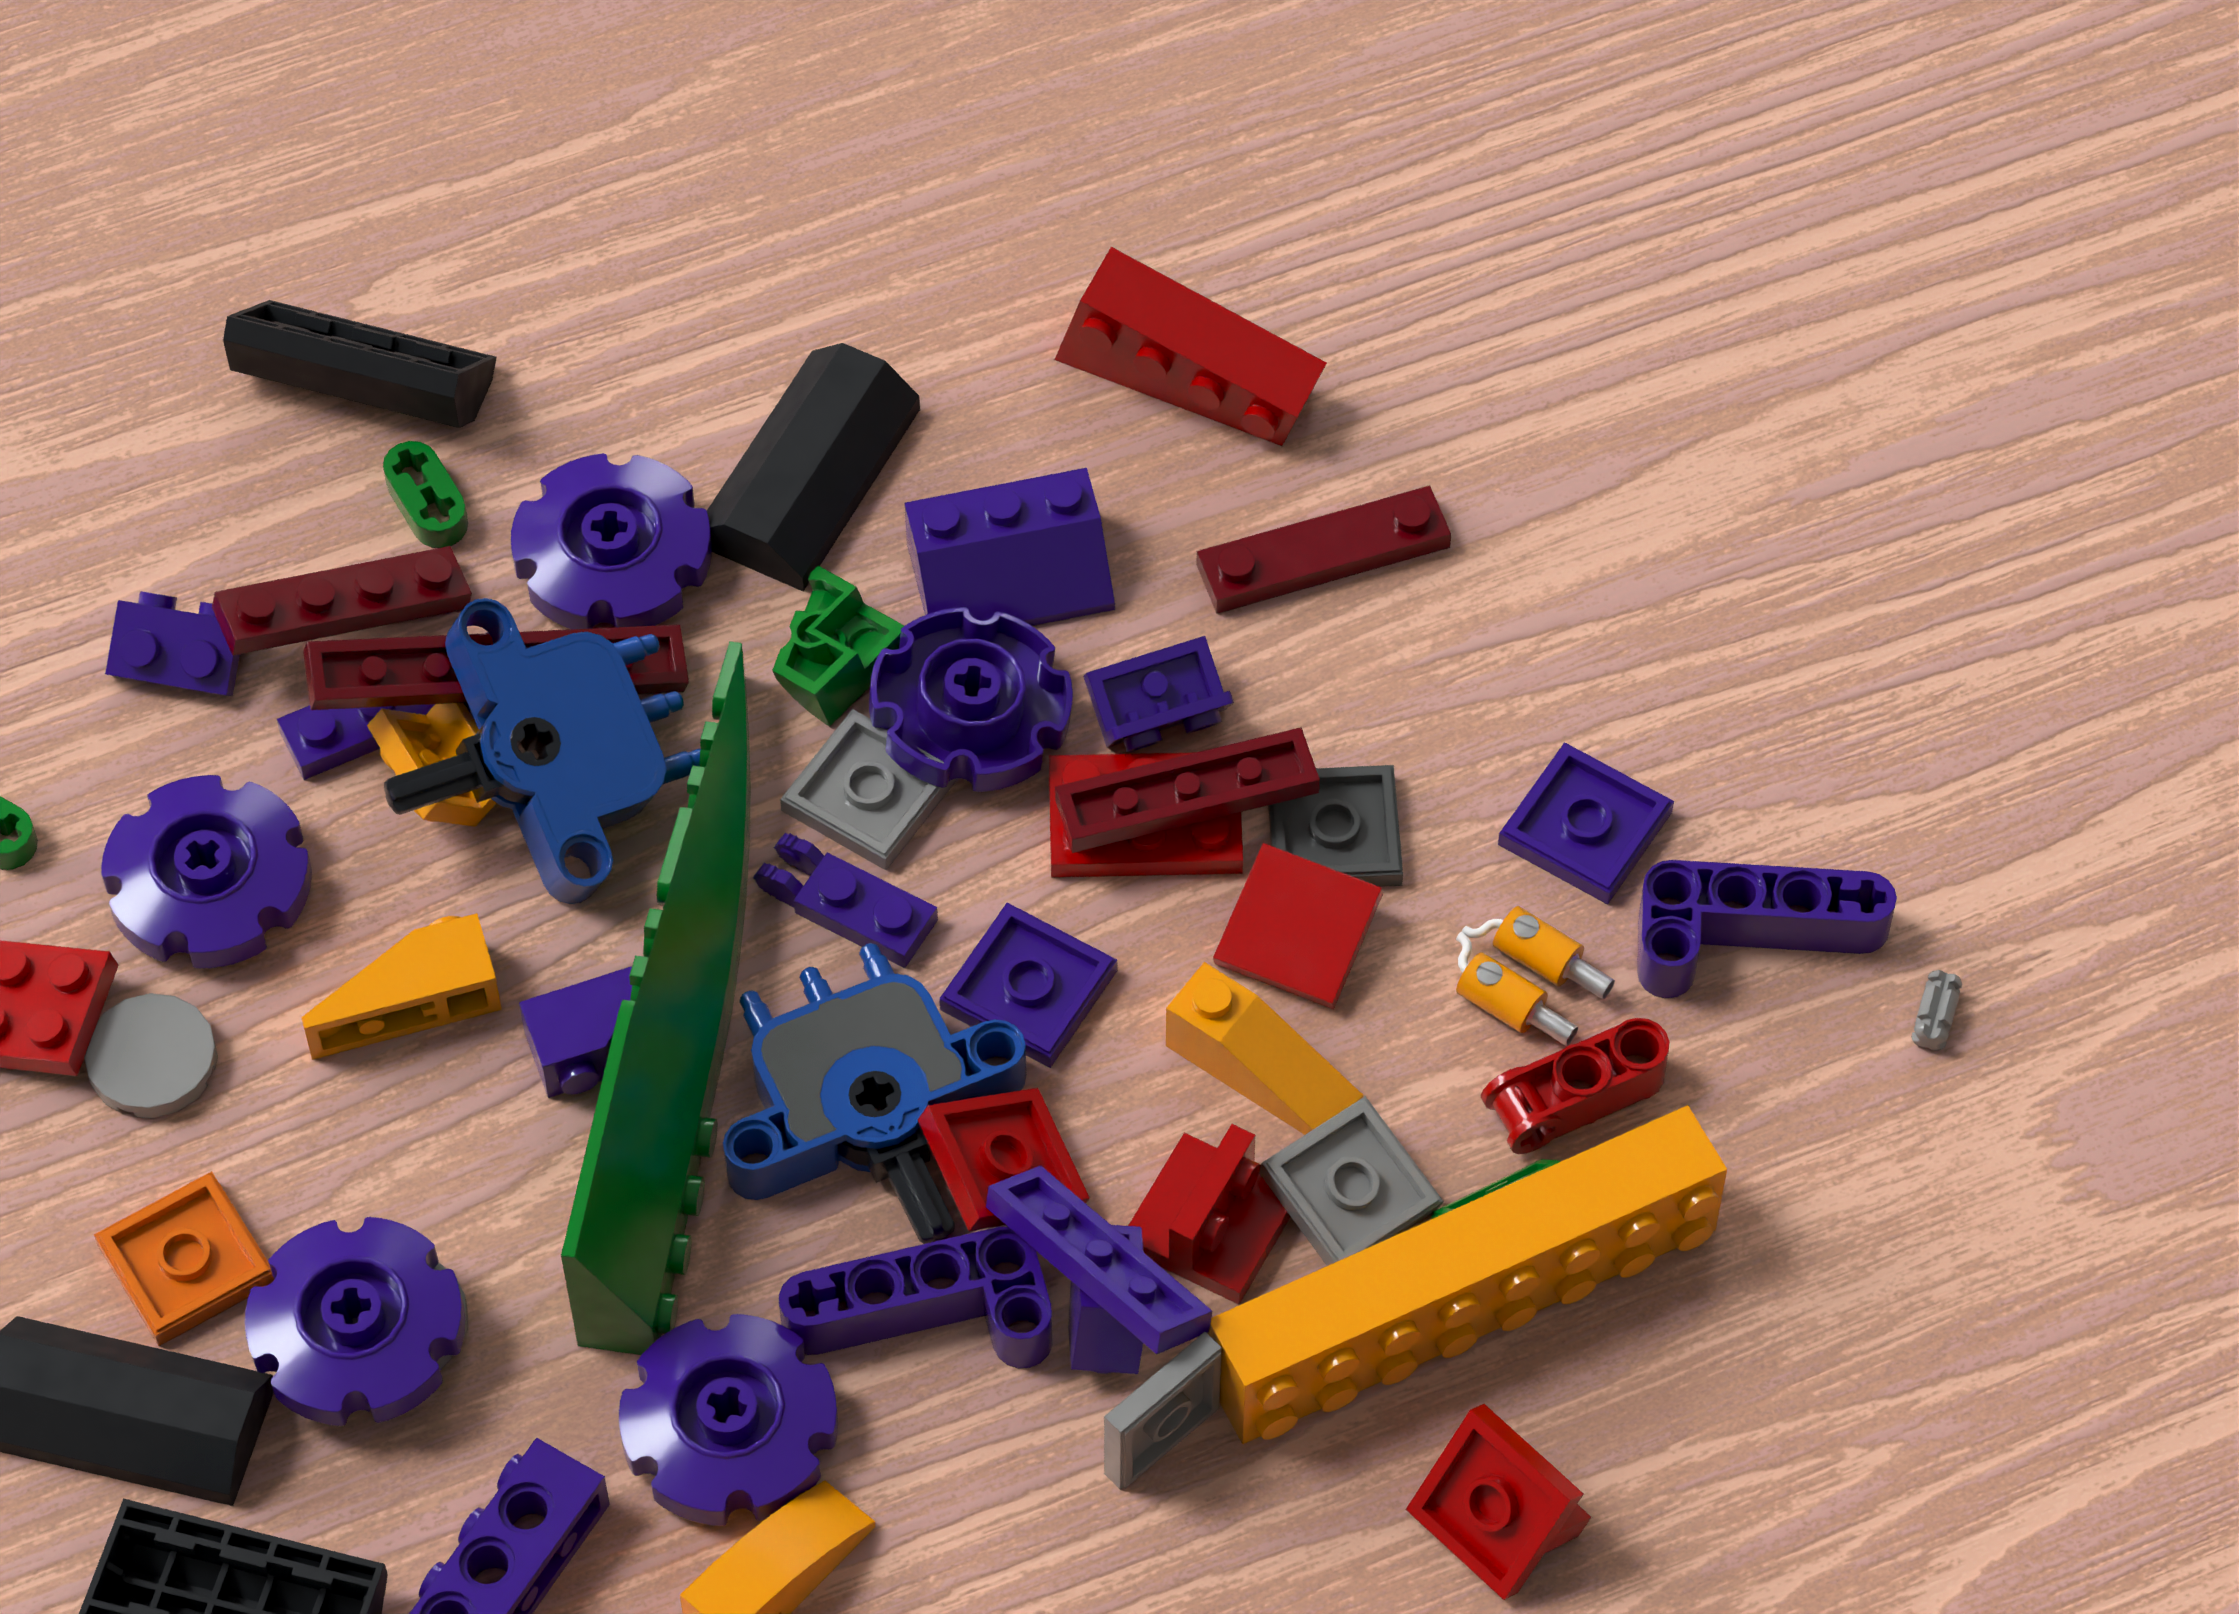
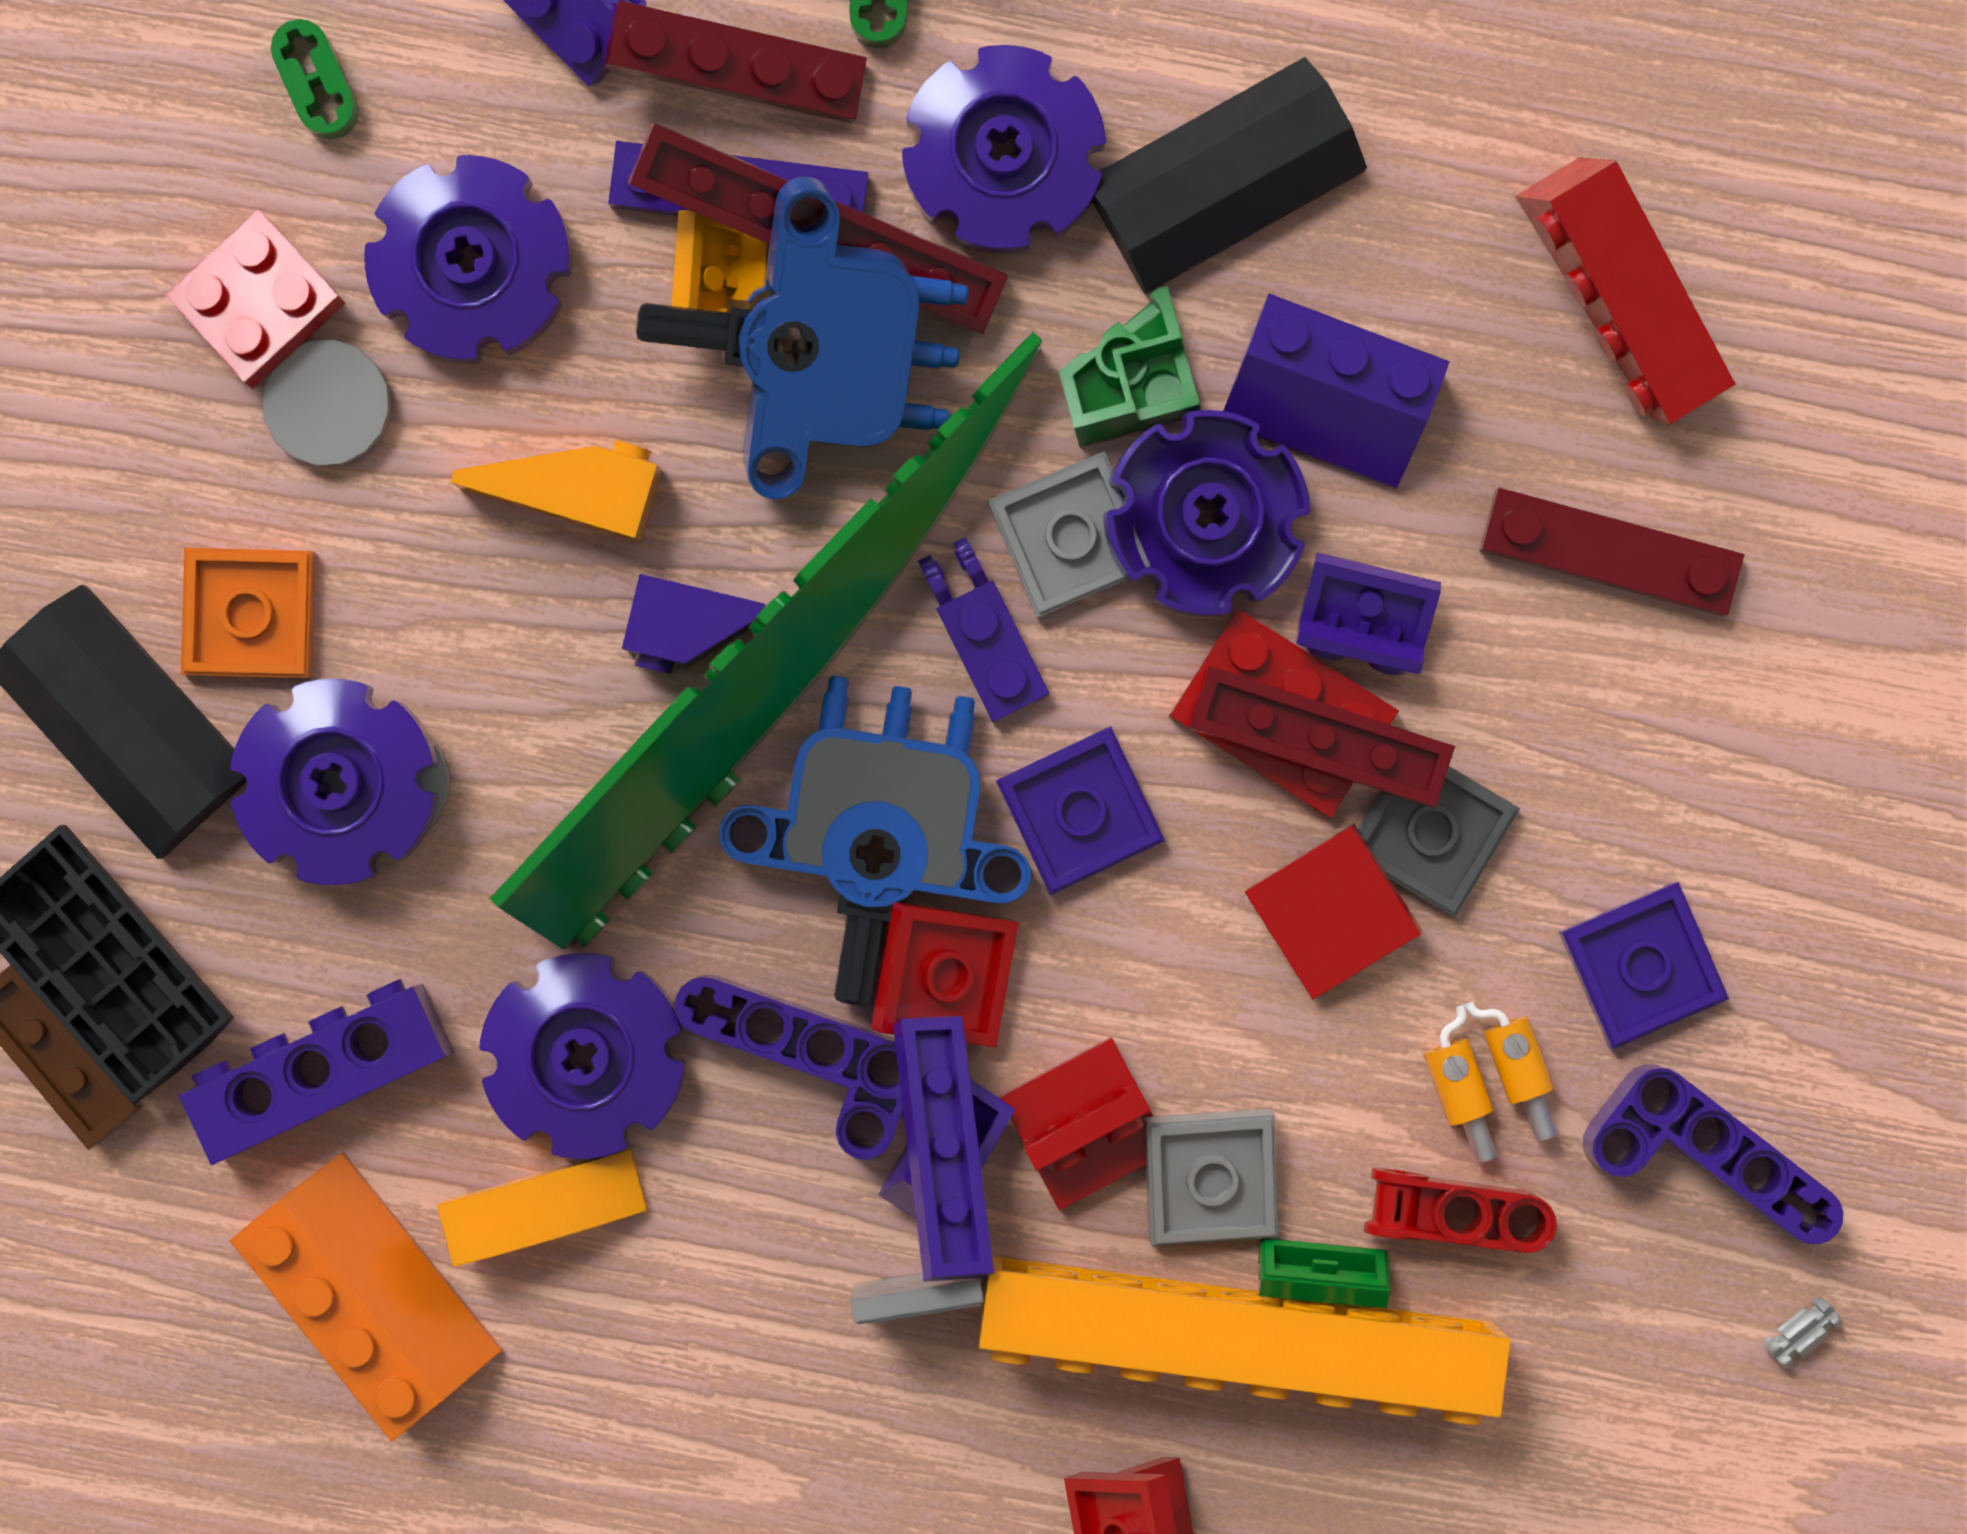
camera: 30 degrees right, 30 degrees up
(1254, 1051) = (1220, 1014): light orange slope -> none

